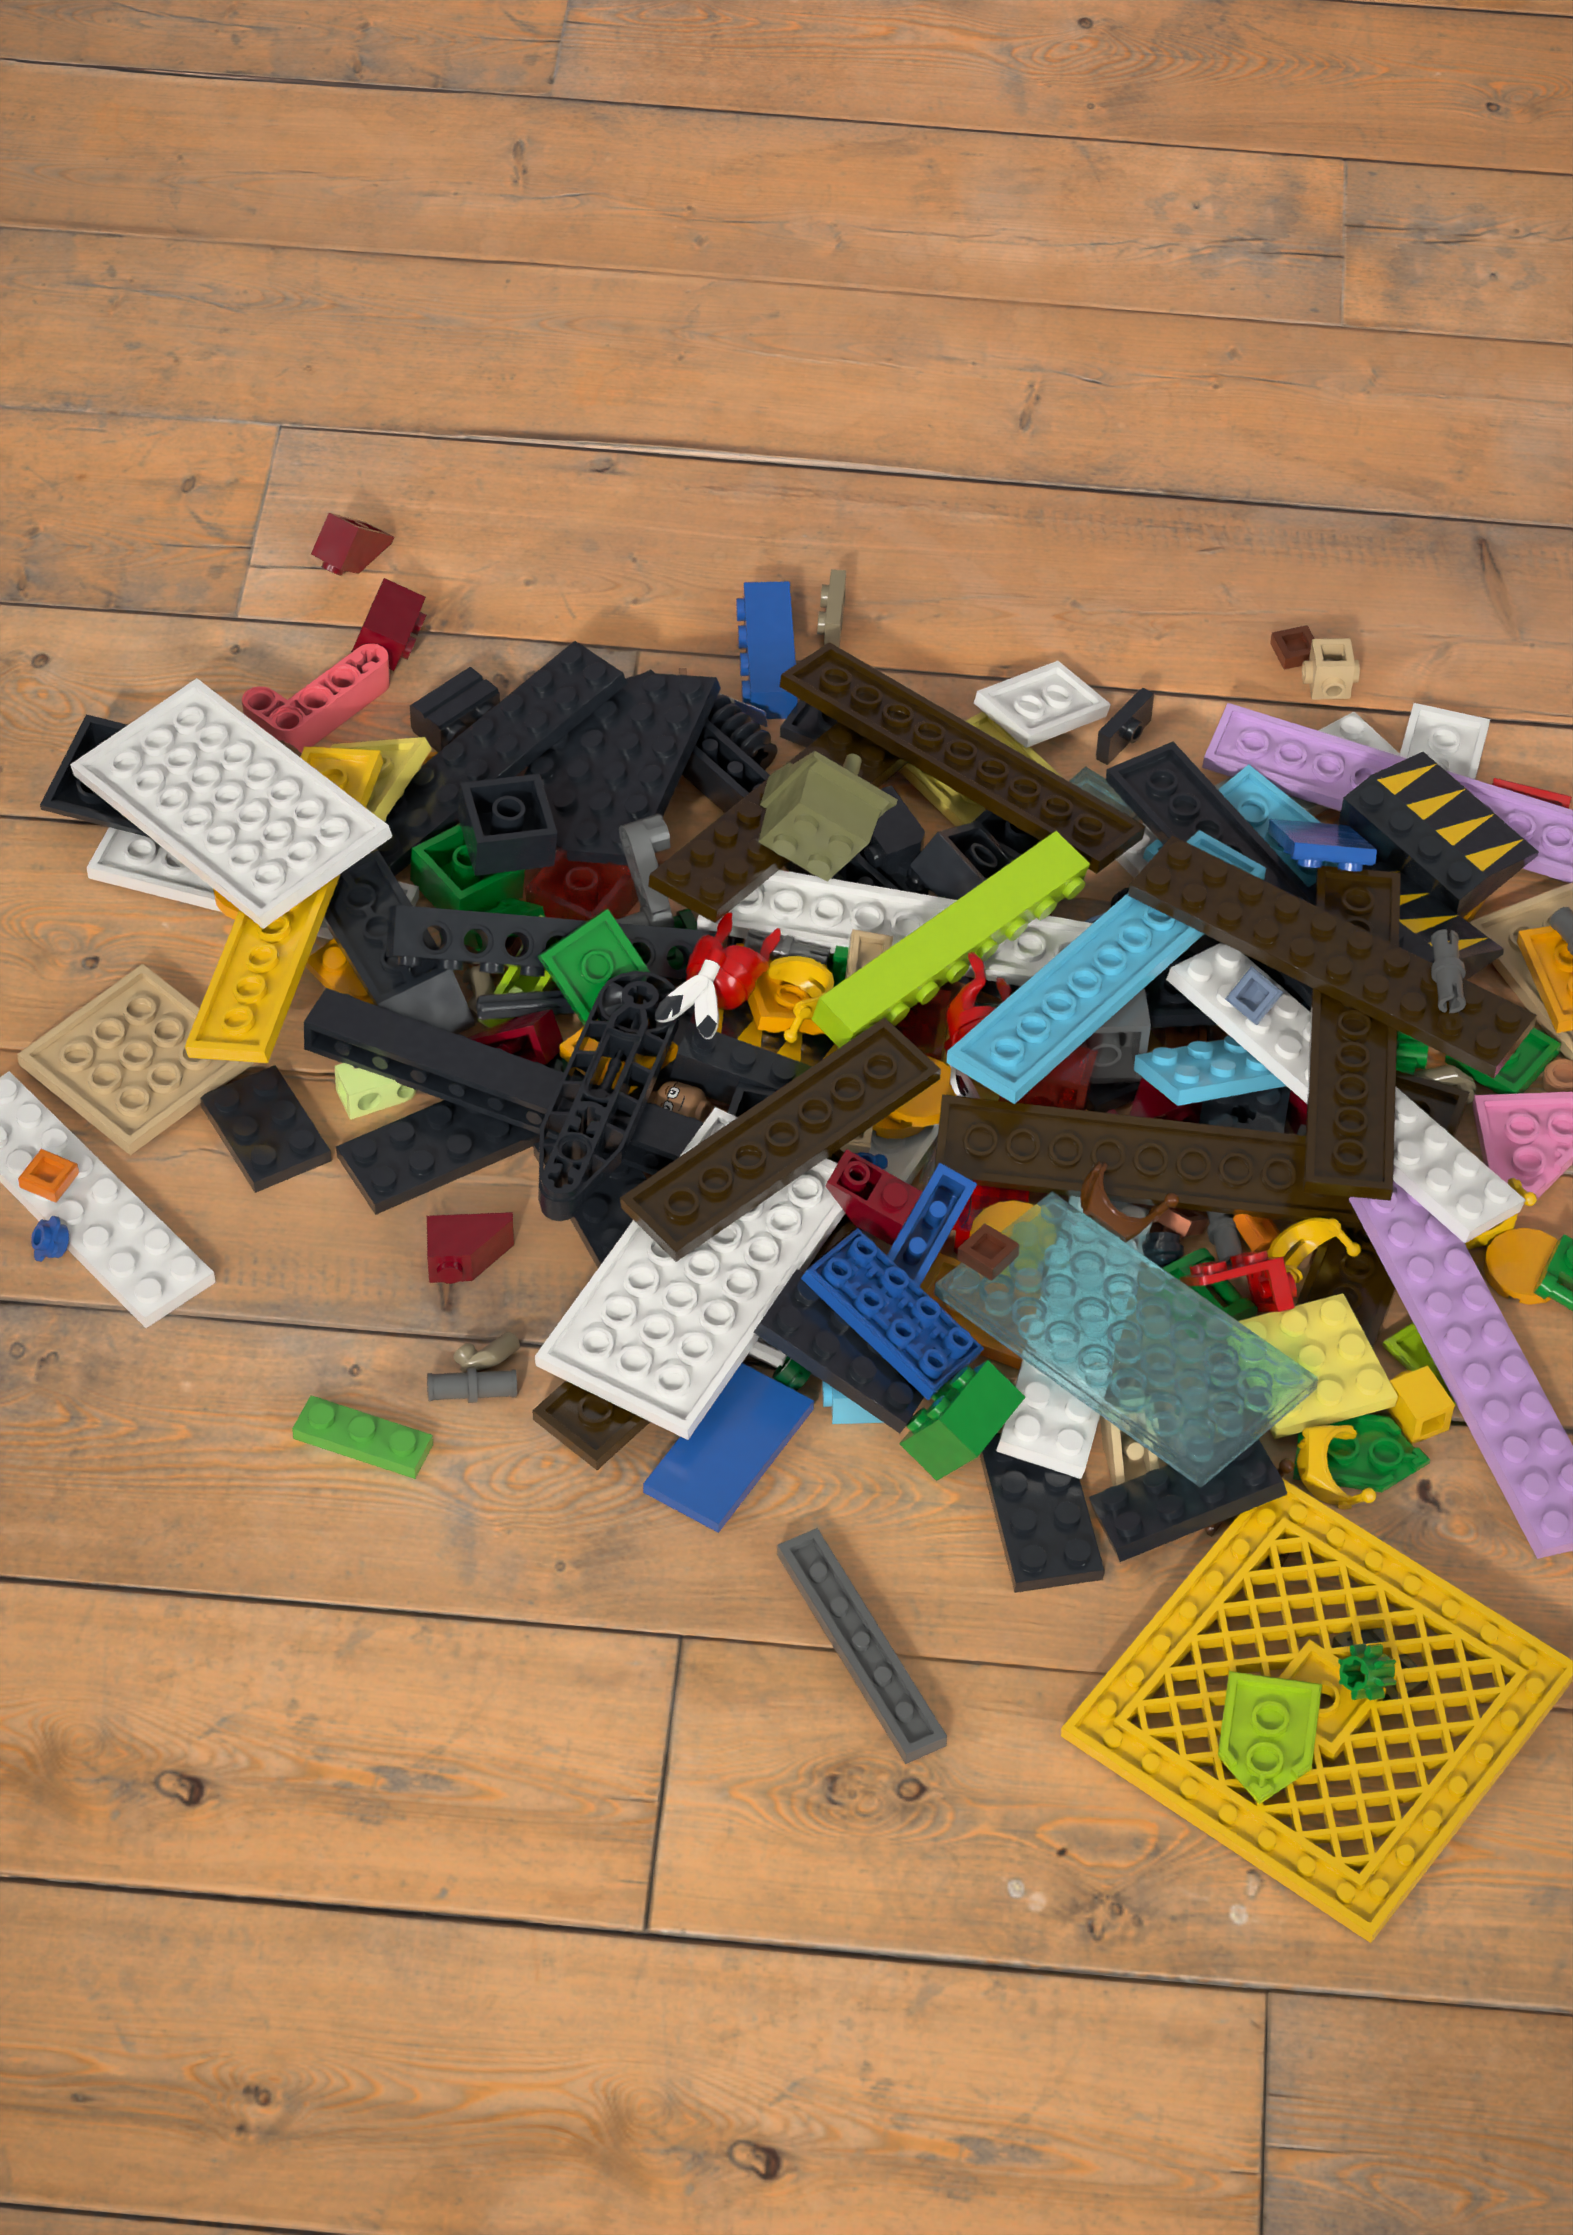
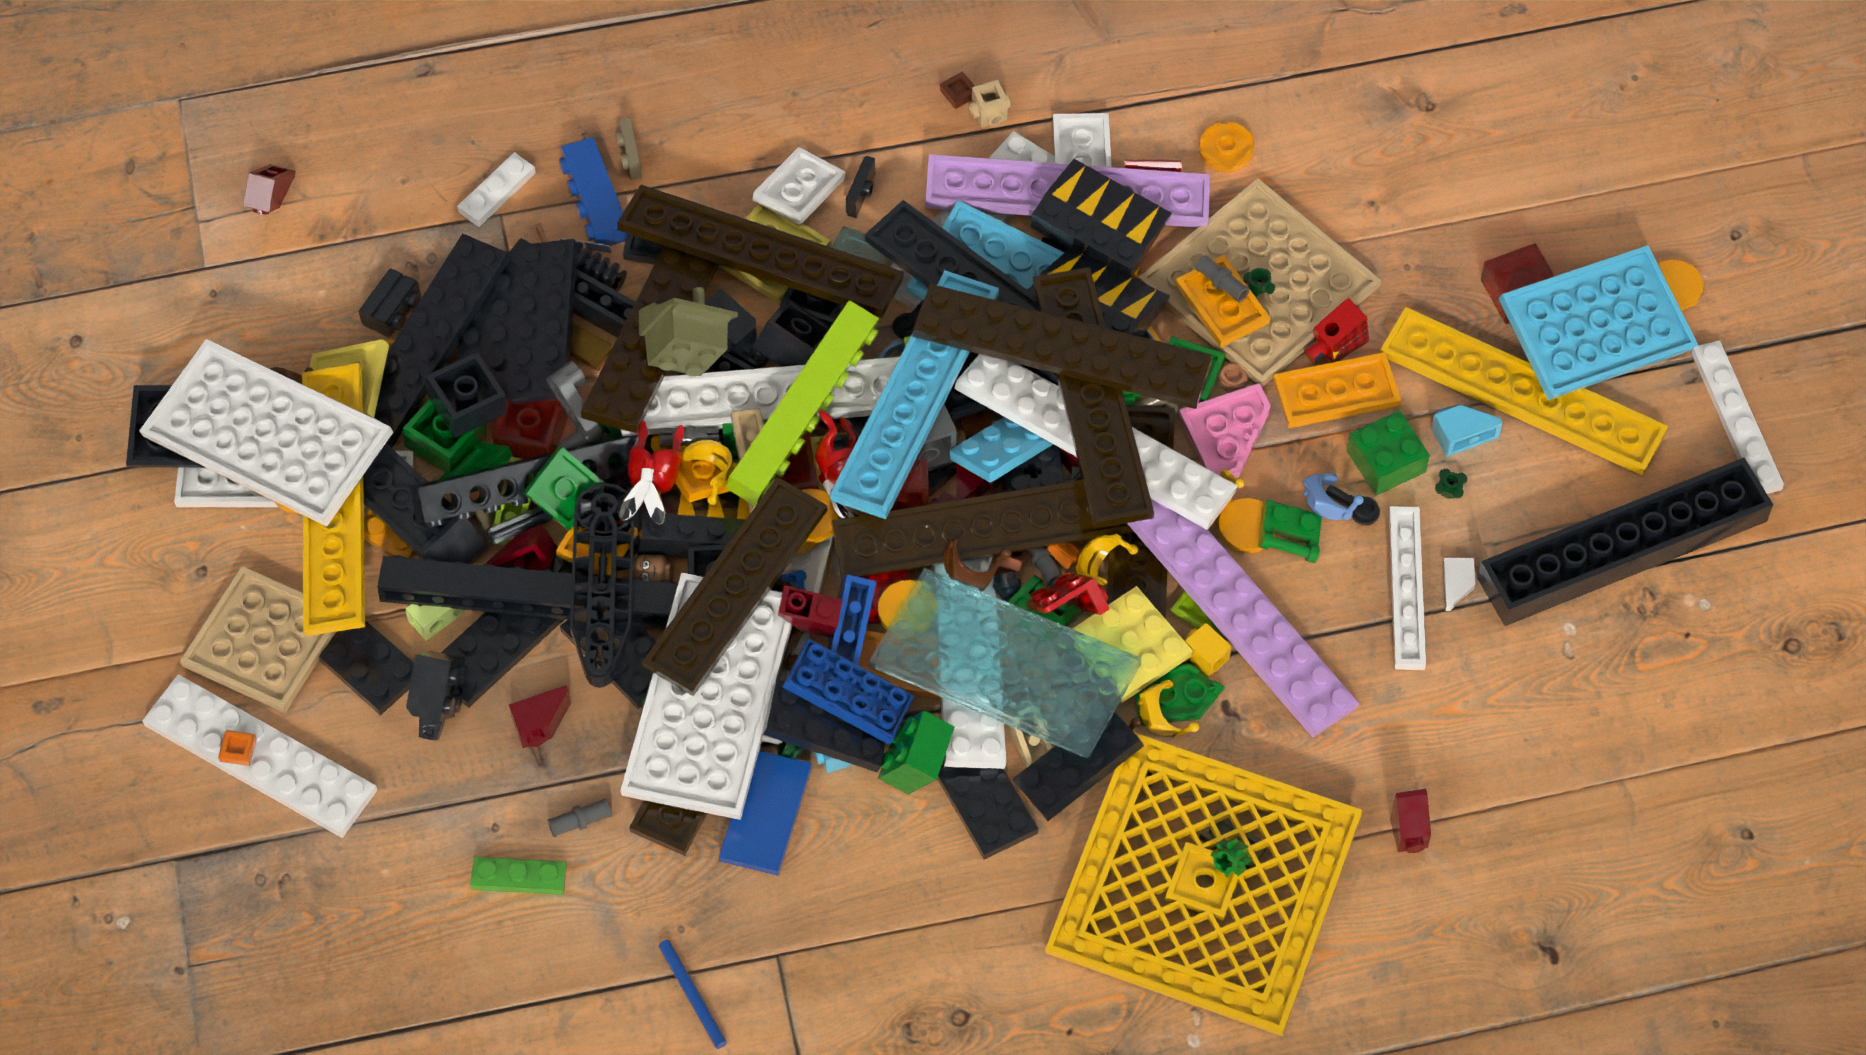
camera: 15 degrees left, 10 degrees up
(49, 1239) = (254, 793): blue plate -> none
(323, 702) = (313, 292): coral beam -> none
(333, 1171) = (435, 691): none -> black hinge
(392, 620) = (321, 248): dark red brick -> none
(488, 1356) = (585, 791): dark tan arm -> none
(544, 1652) = (692, 994): none -> blue bar
(643, 618) = (496, 189): none -> white plate
(686, 817) = (589, 347): none -> pearl gold tile
(862, 1646) = (897, 928): dark grey plate -> none
(988, 1251) = (899, 630): copper plate -> none
(1254, 995) = (1019, 390): sand blue slope -> none
(1268, 1731) = (1179, 914): lime tile -> none
(1319, 842) = (1029, 255): blue tile -> none
(1448, 971) = (1146, 341): dark grey pin -> none

